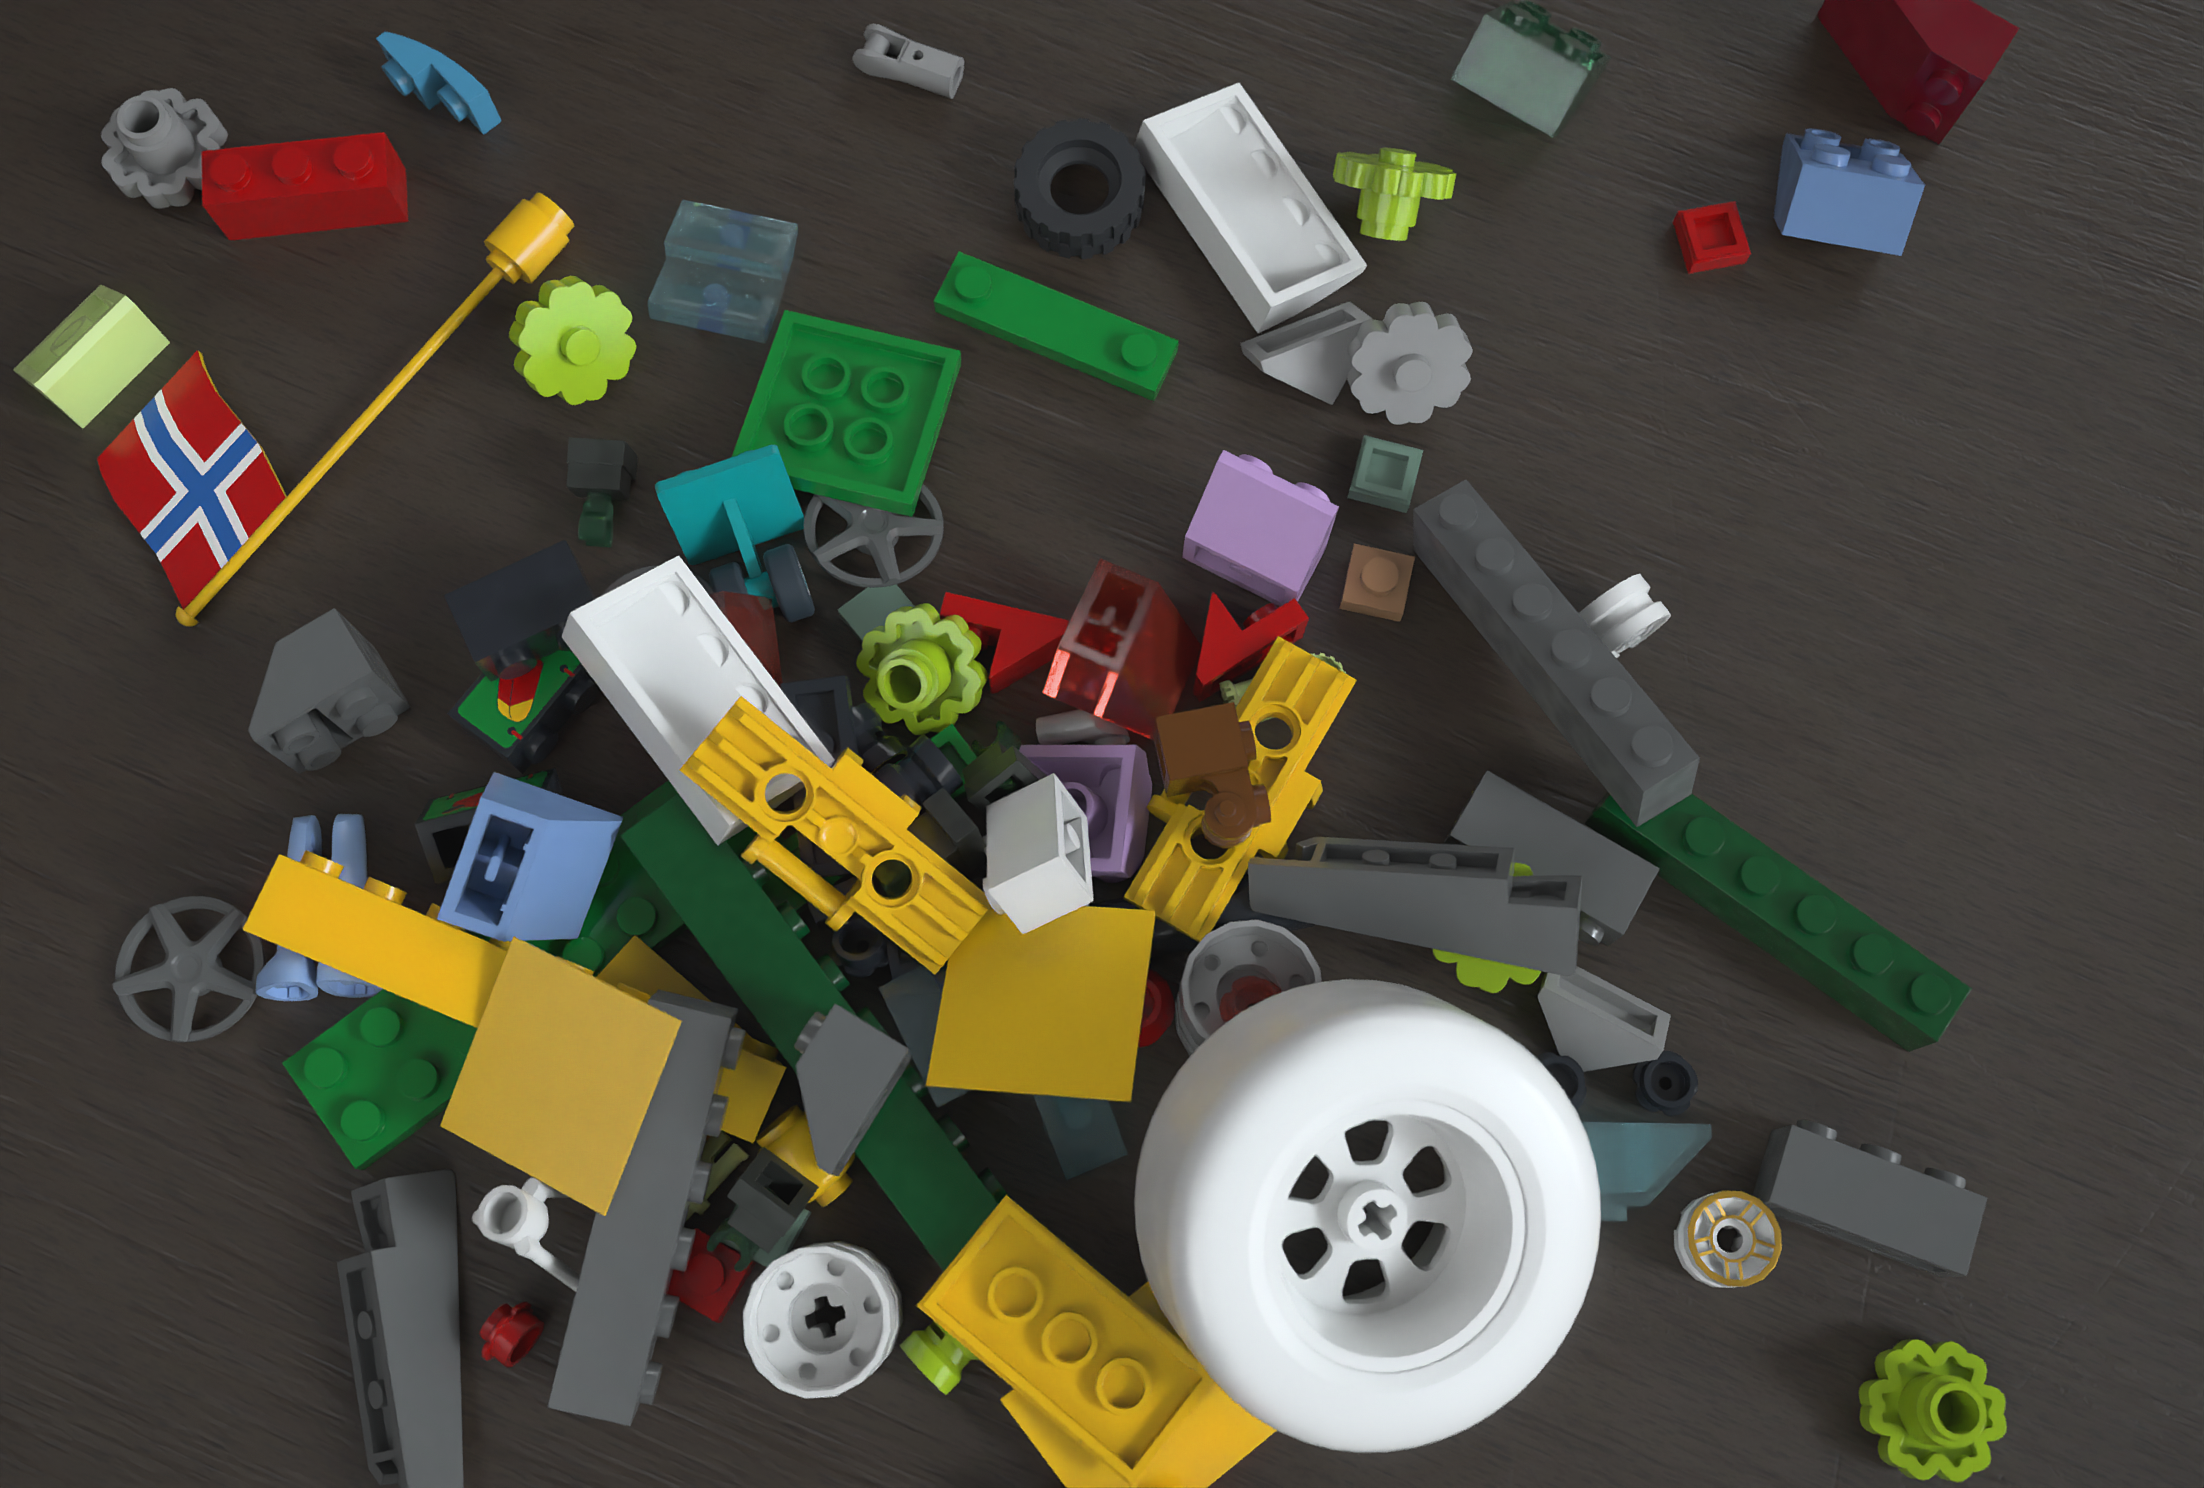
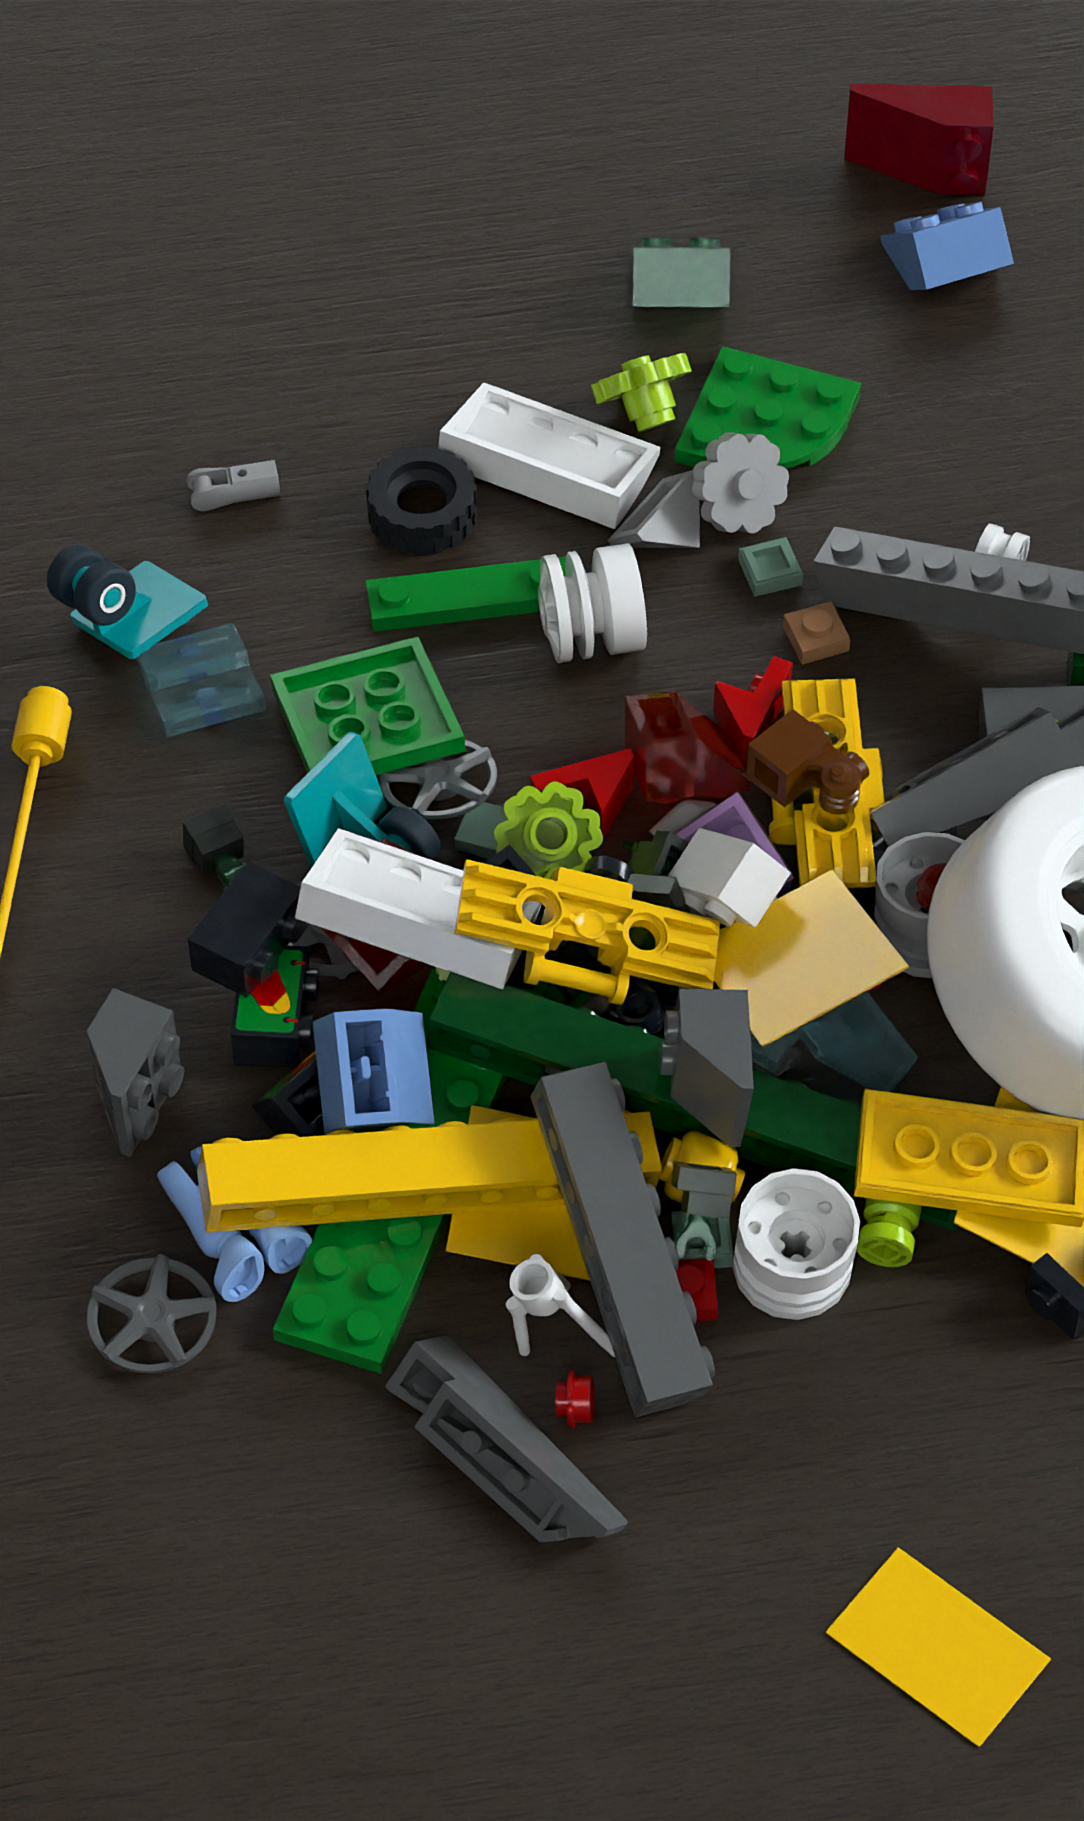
camera: 30 degrees left, 20 degrees down
(560, 1074) = (506, 1173): yellow piece -> none
(572, 340) = (132, 765): lime plant -> none
(694, 156) = (121, 606): none -> plate
(1149, 422) = (593, 603): none -> white wheel
(1259, 529) = (717, 628): lavender slope -> none
(1512, 285) = (786, 403): none -> green plate
(1711, 237) = (878, 319): red tile -> none

